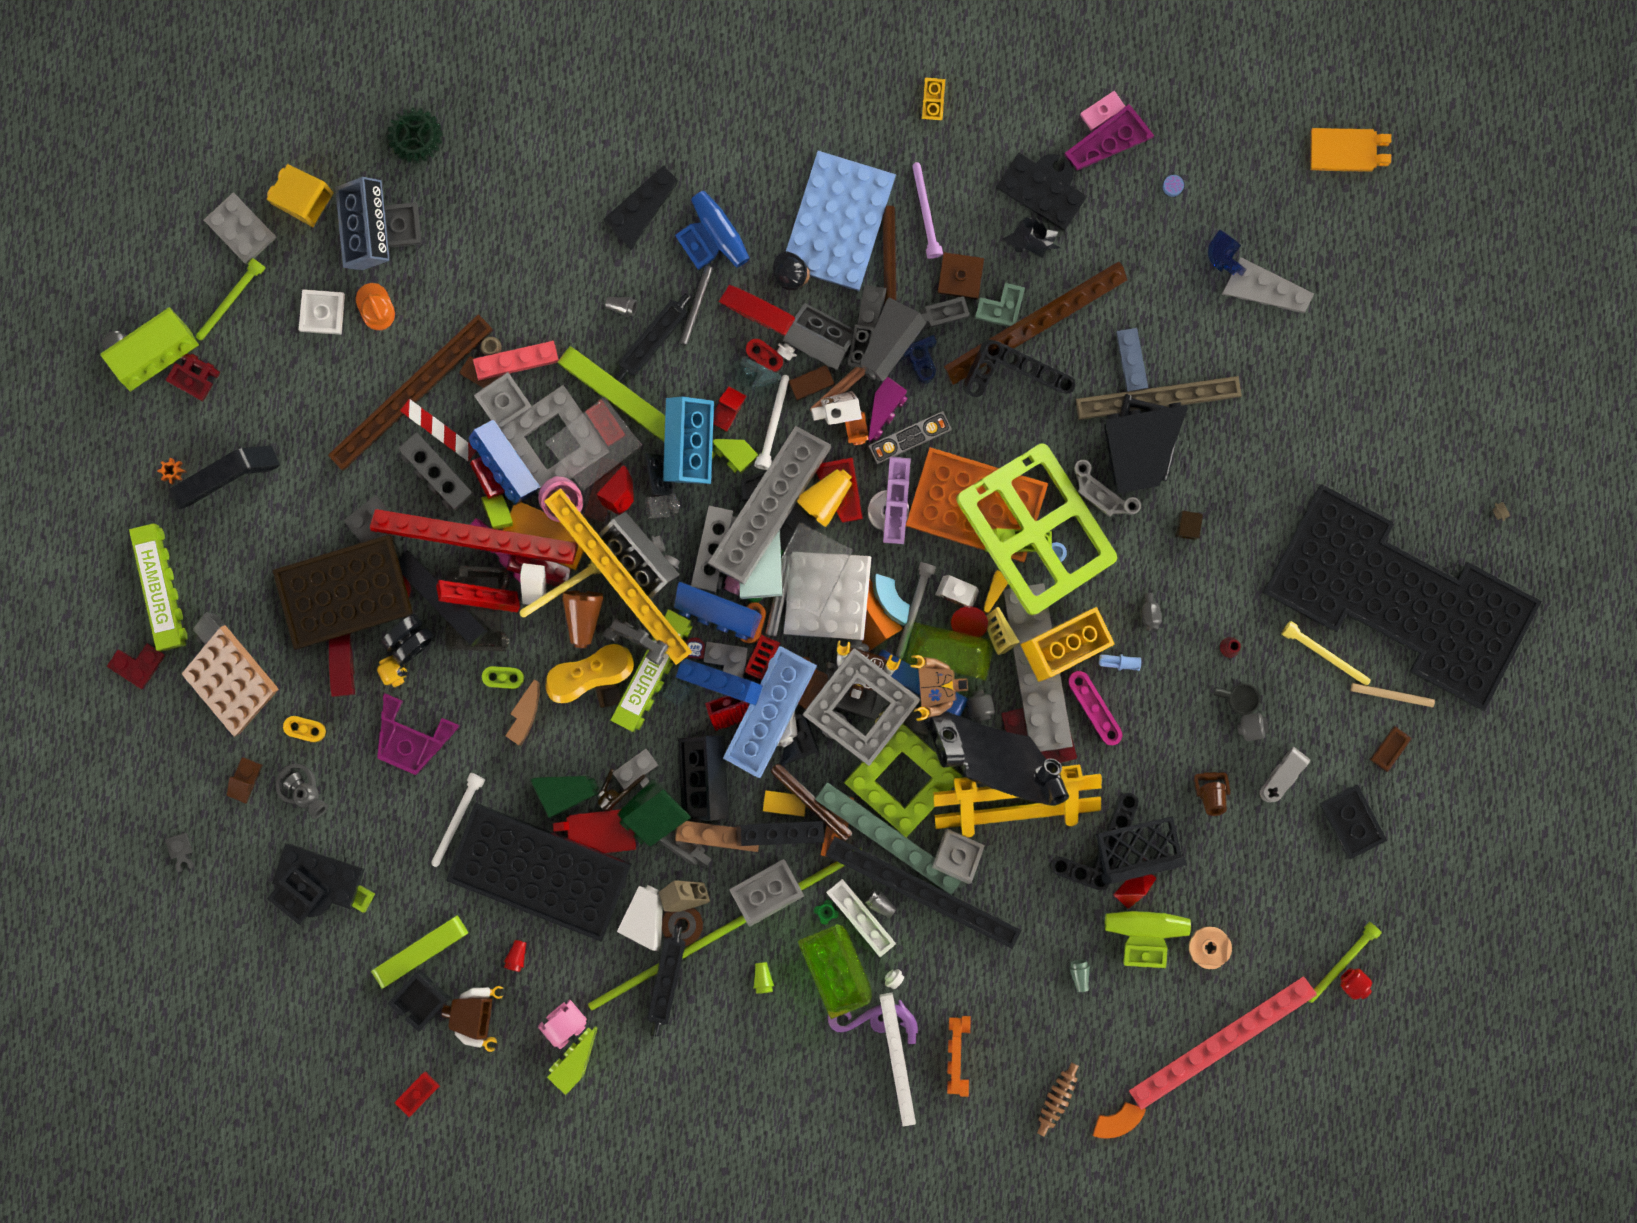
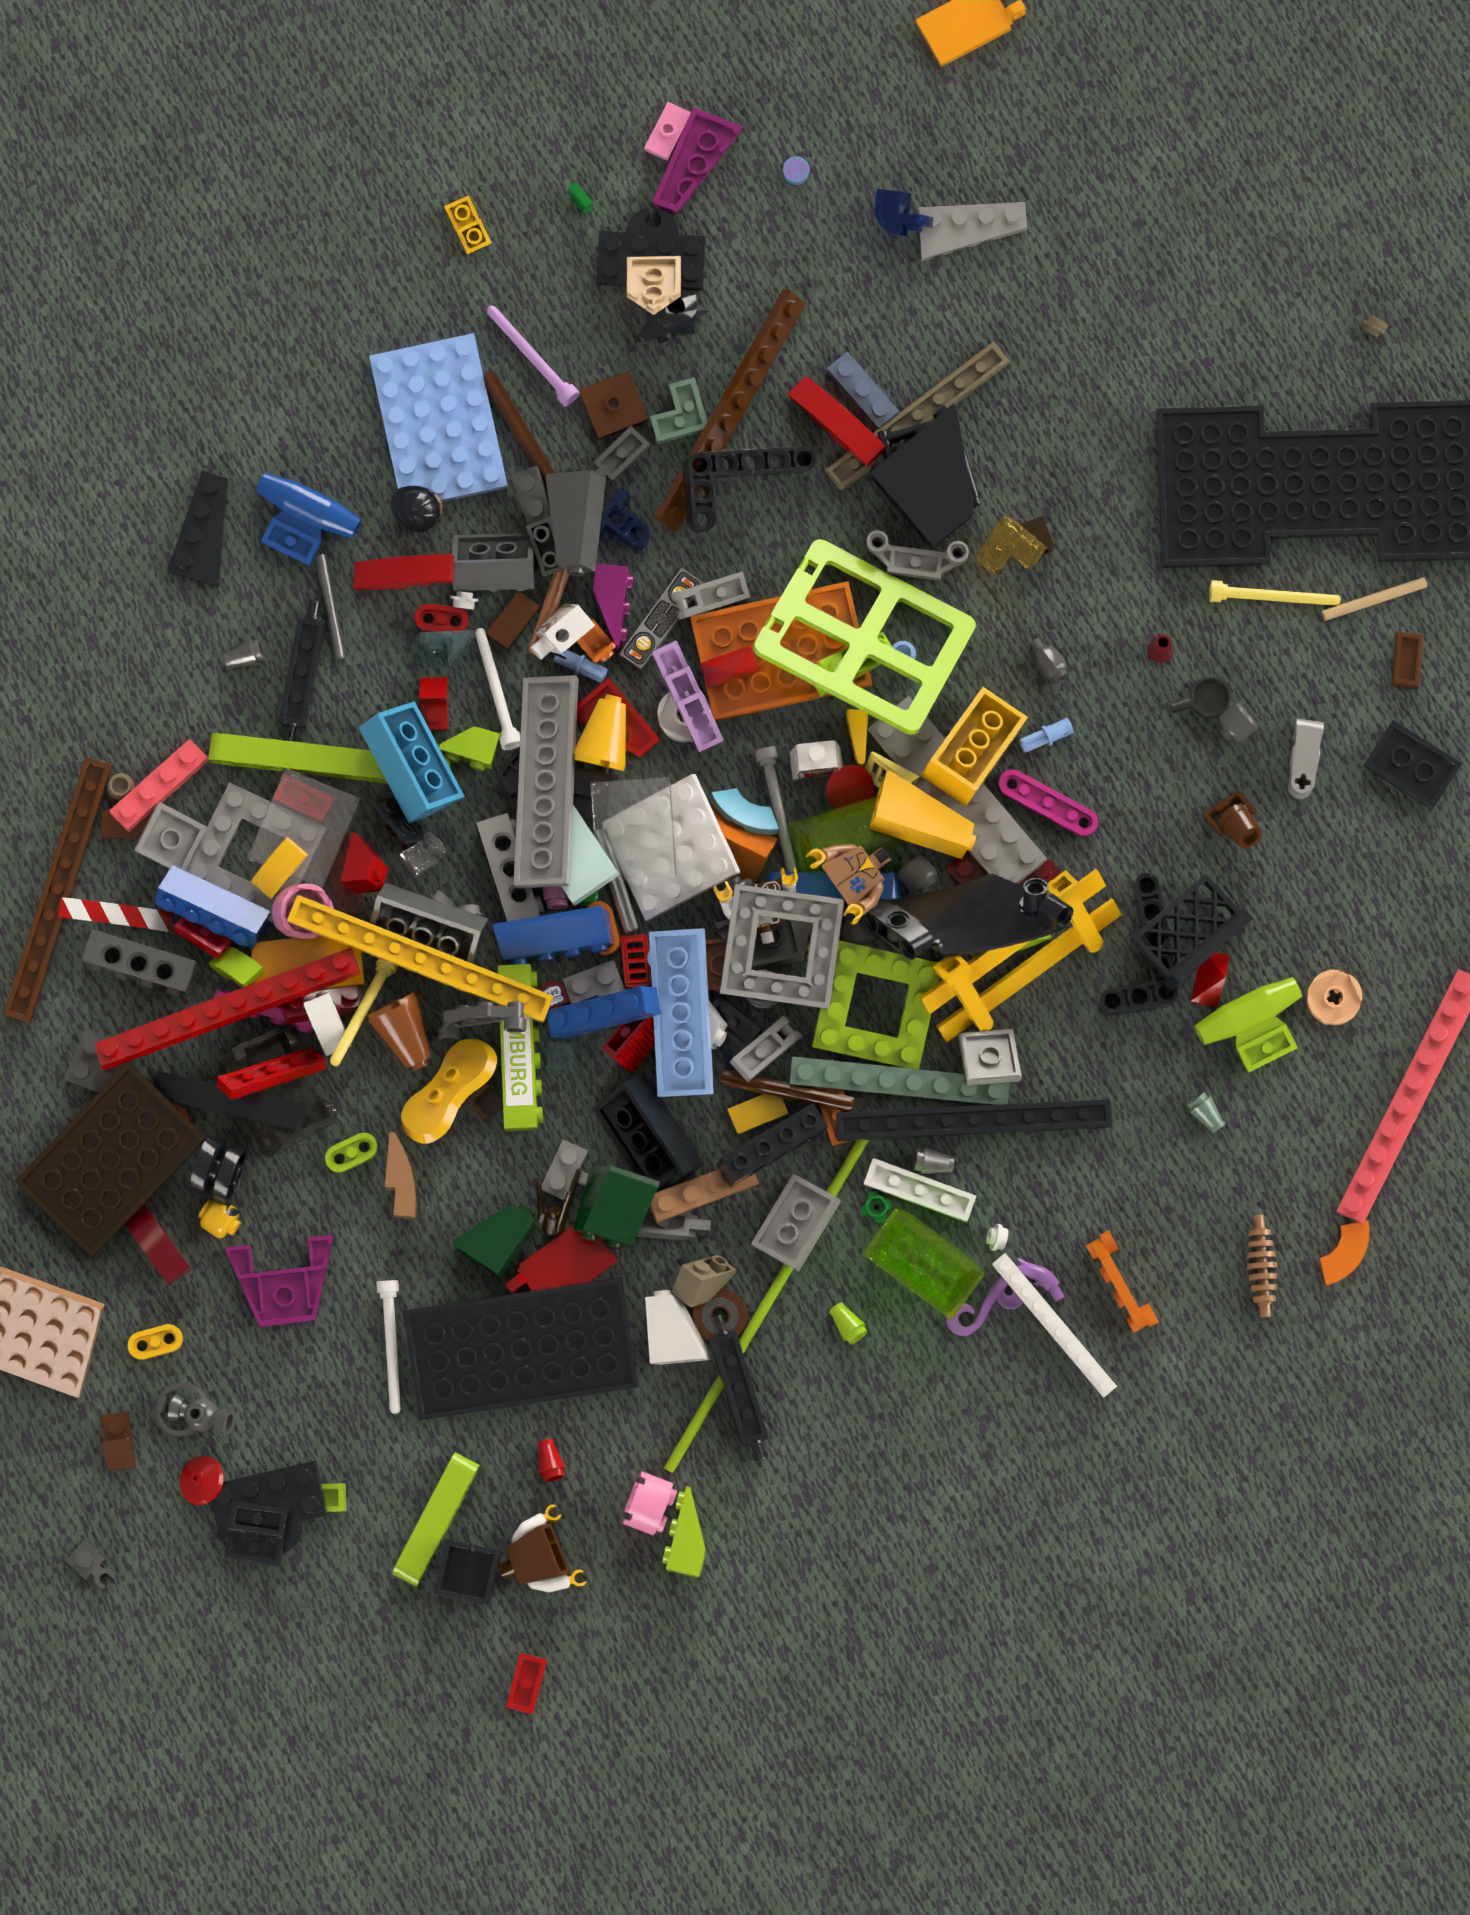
camera: 25 degrees left, 5 degrees down
(282, 837) = (201, 1480): none -> red piece
(561, 461) = (279, 868): none -> yellow slope
(812, 766) = (765, 1049): none -> light grey plate
(839, 439) = (581, 665): none -> light blue axle
(936, 496) = (729, 667): none -> red slope
(952, 441) = (711, 595): none -> light grey plate
(1002, 672) = (920, 819): none -> yellow slope
(1018, 123) = (580, 198): none -> green tile
(1034, 207) = (654, 281): none -> tan tile
(1102, 371) = (837, 421): none -> red slope
(1171, 517) = (1009, 540): none -> clear yellow plate

